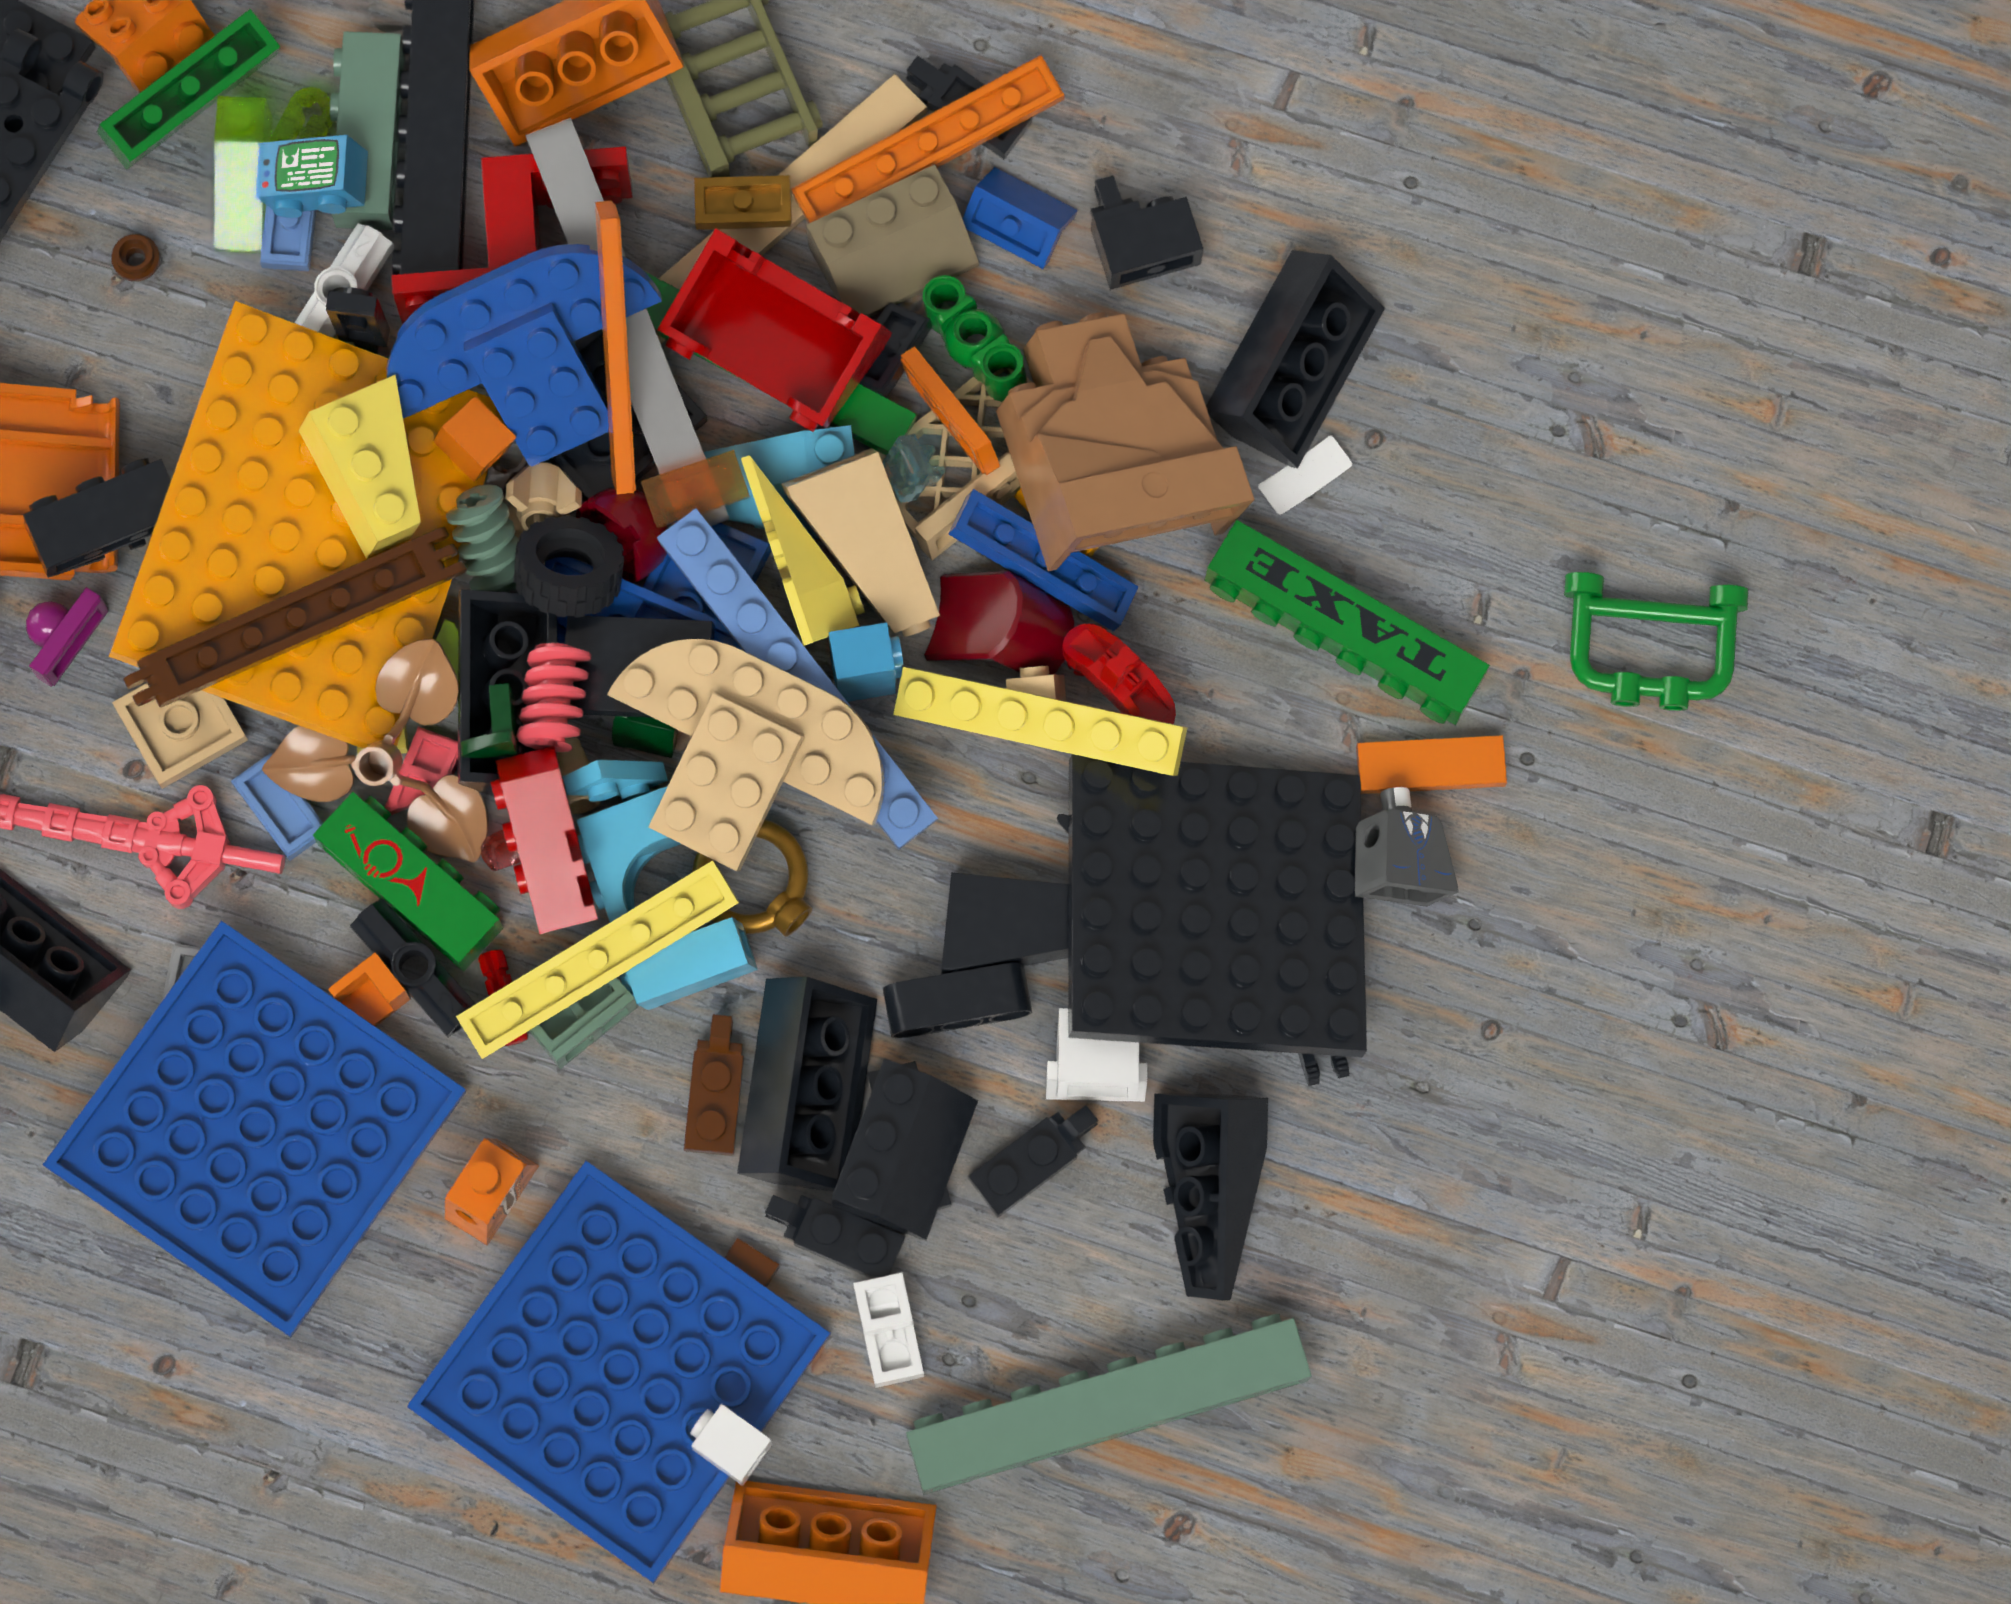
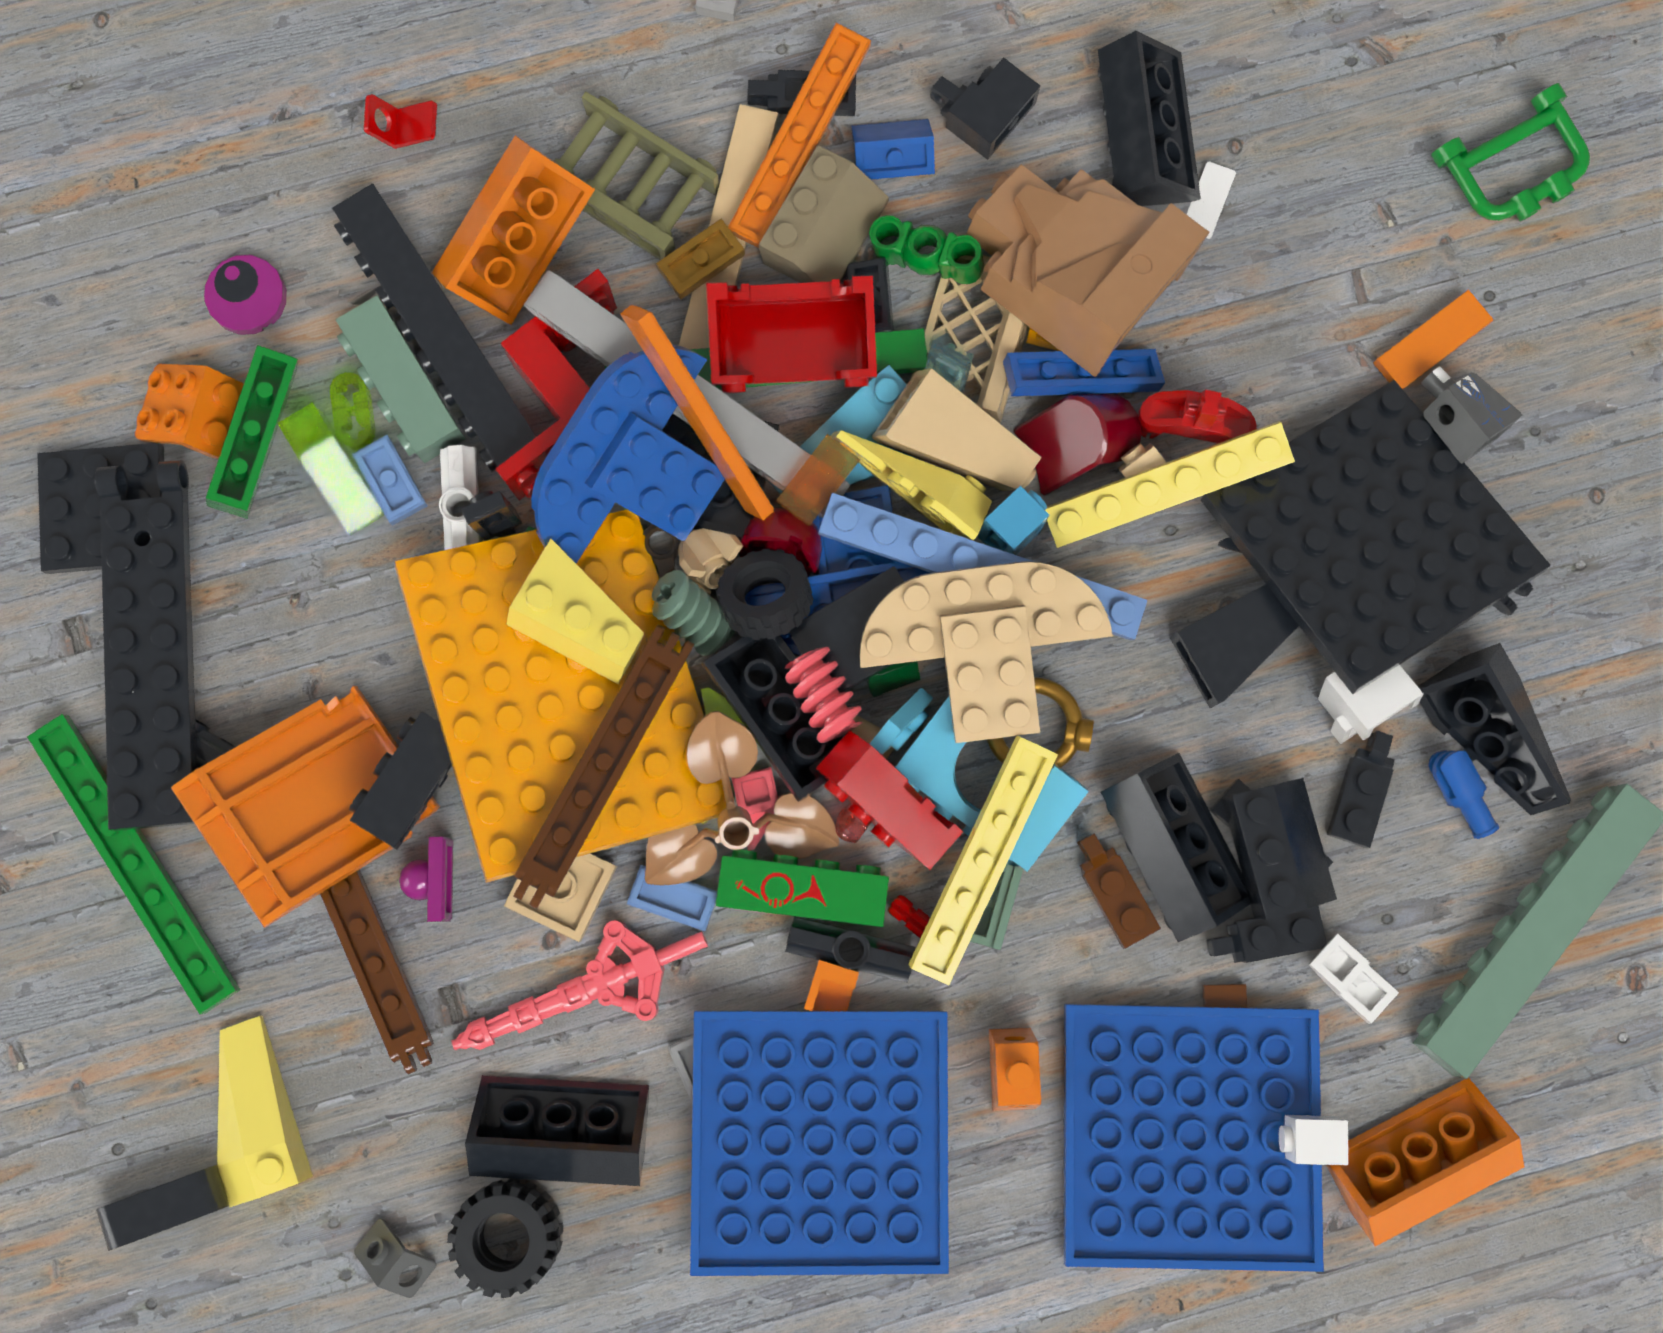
camera: 30 degrees left, 5 degrees up
(131, 245) = (289, 568): reddish brown plate -> none
(312, 175) = (385, 435): brick -> none
(474, 439) = (634, 547): orange panel -> none
(504, 727) = (805, 739): dark green tile -> none
(949, 411) = (948, 310): orange tile -> none
(957, 1000) = (1237, 717): black beam -> none
(1132, 1218) = (1463, 789): none -> blue arm
(1345, 623) = (1313, 282): green brick -> none

